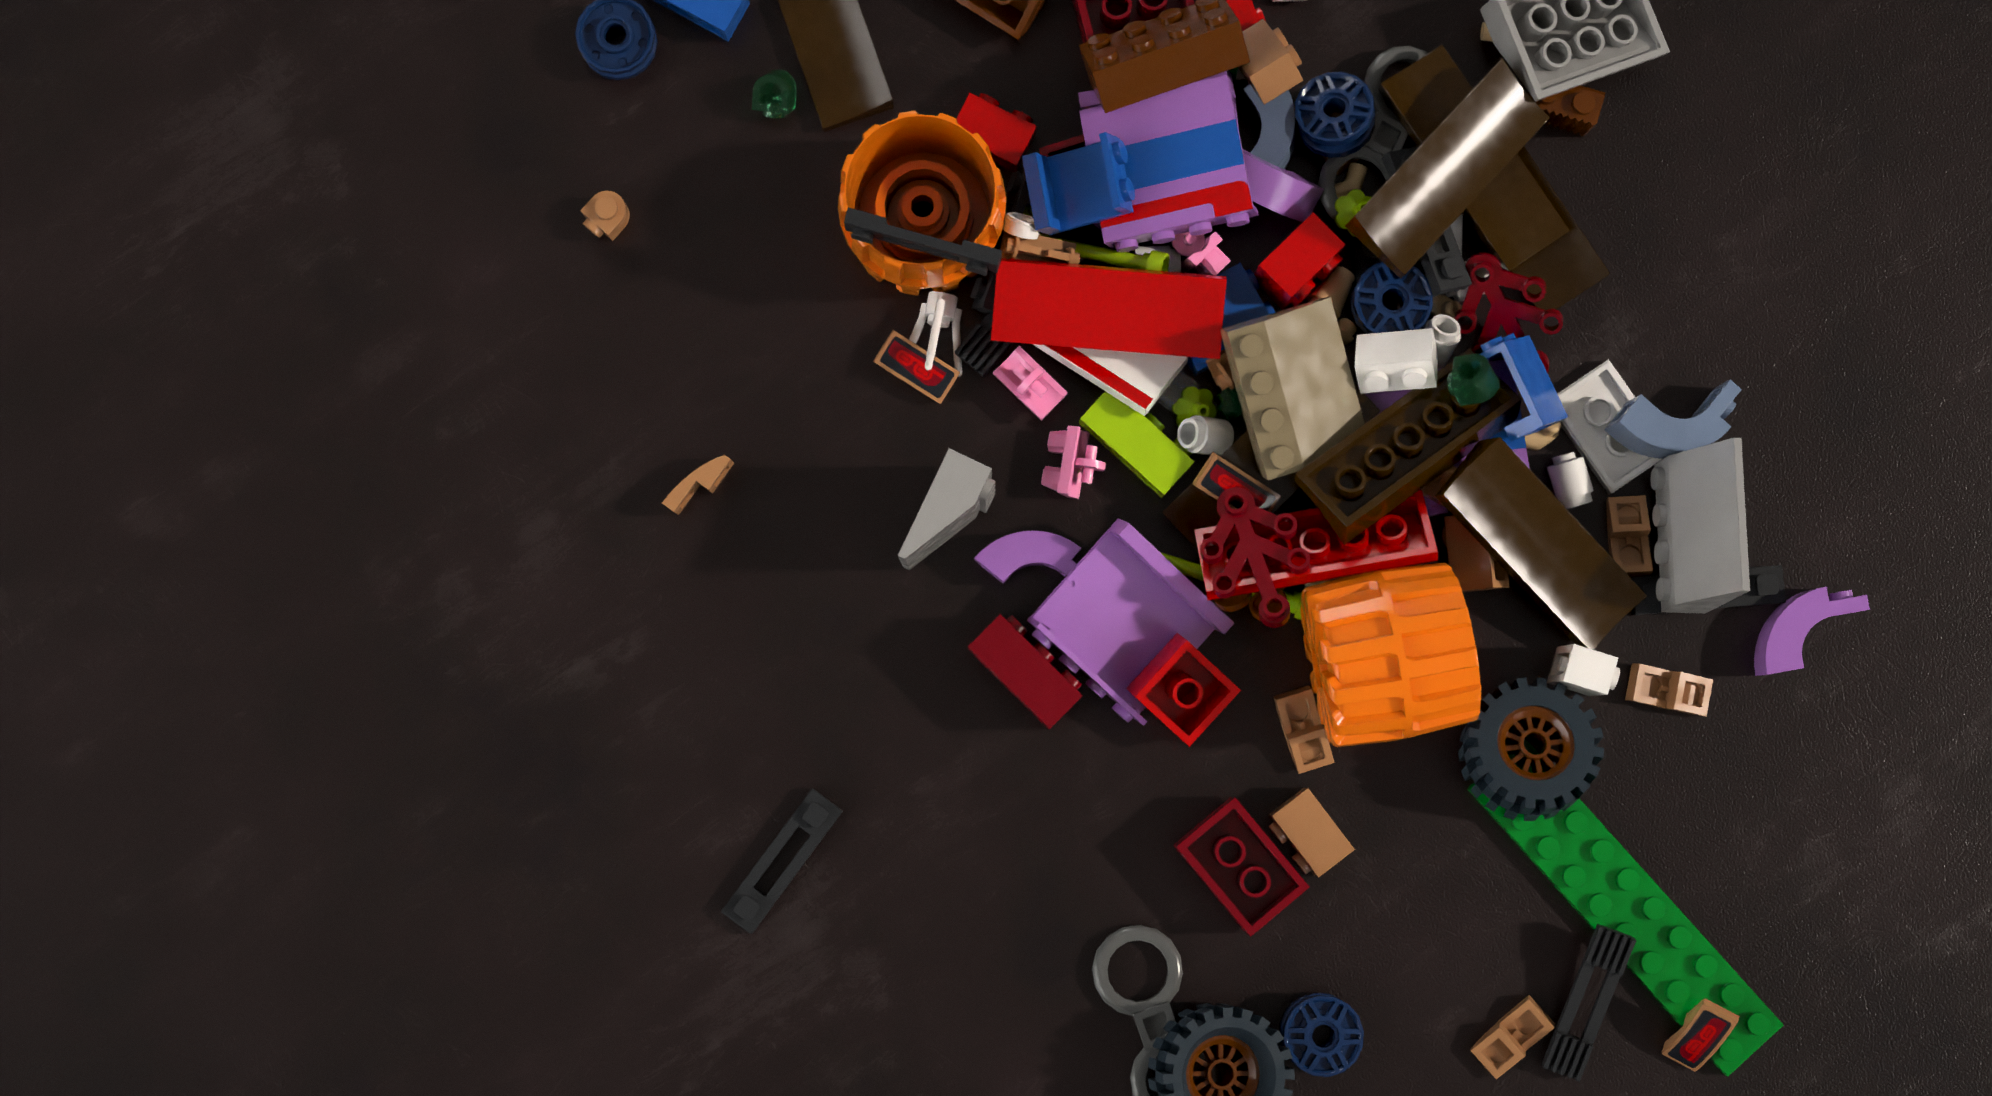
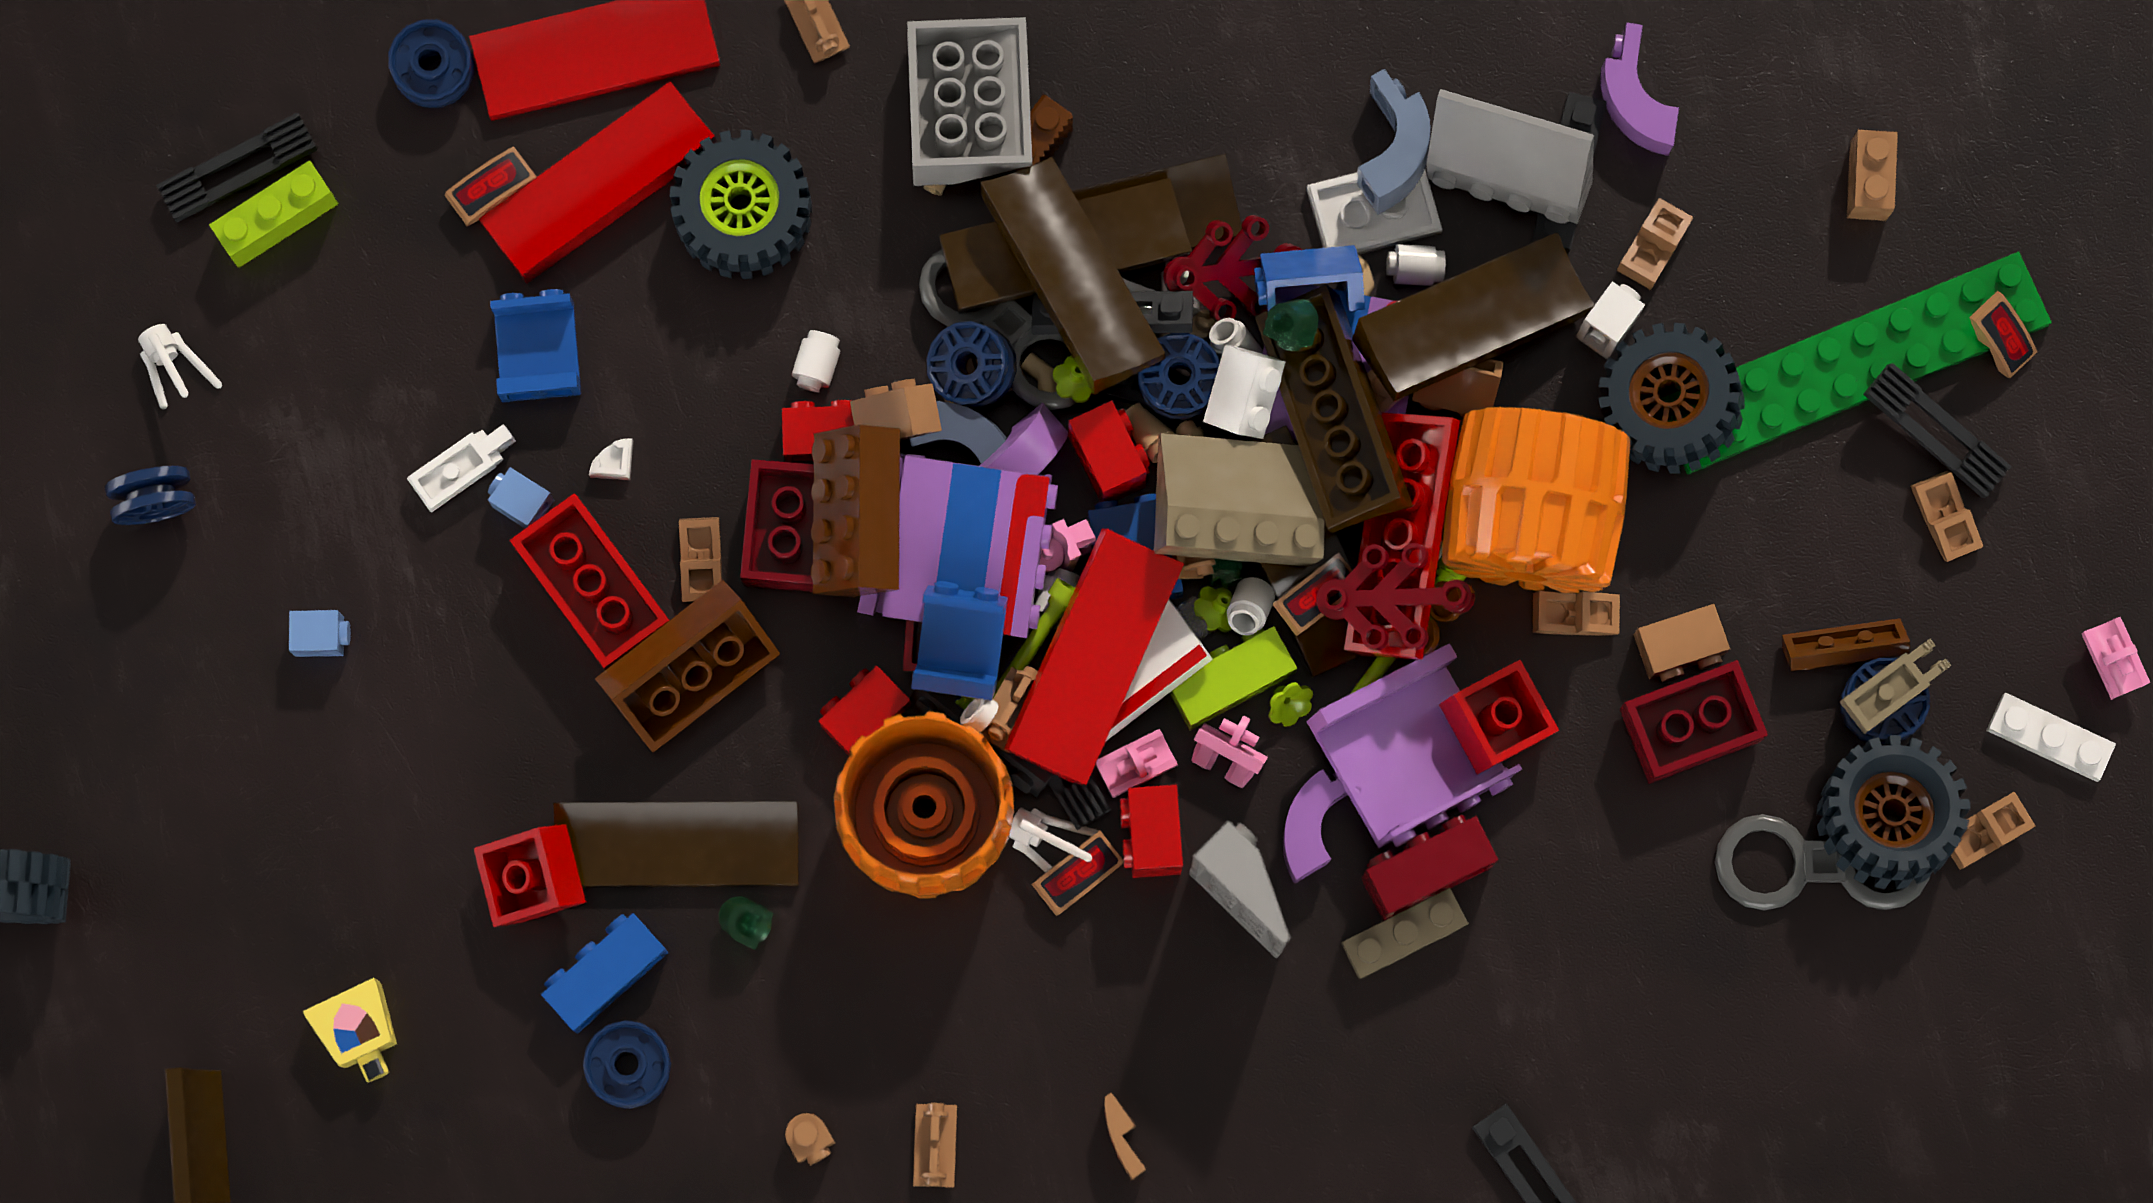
camera: 70 degrees left, 5 degrees down
(637, 325) = (935, 1145): none -> medium nougat hinge
(869, 226) = (1013, 762): black container -> none
(962, 671) = (1404, 933): none -> dark tan plate
(973, 415) = (1153, 831): none -> red brick
(1131, 501) = (1290, 703): none -> lime plant
(1333, 1036) = (1891, 688): none -> dark tan hinge
(1361, 982) = (1845, 644): none -> reddish brown plate
(1628, 534) = (1489, 228): medium nougat slope -> none
(1806, 866) = (1872, 175): none -> medium nougat brick

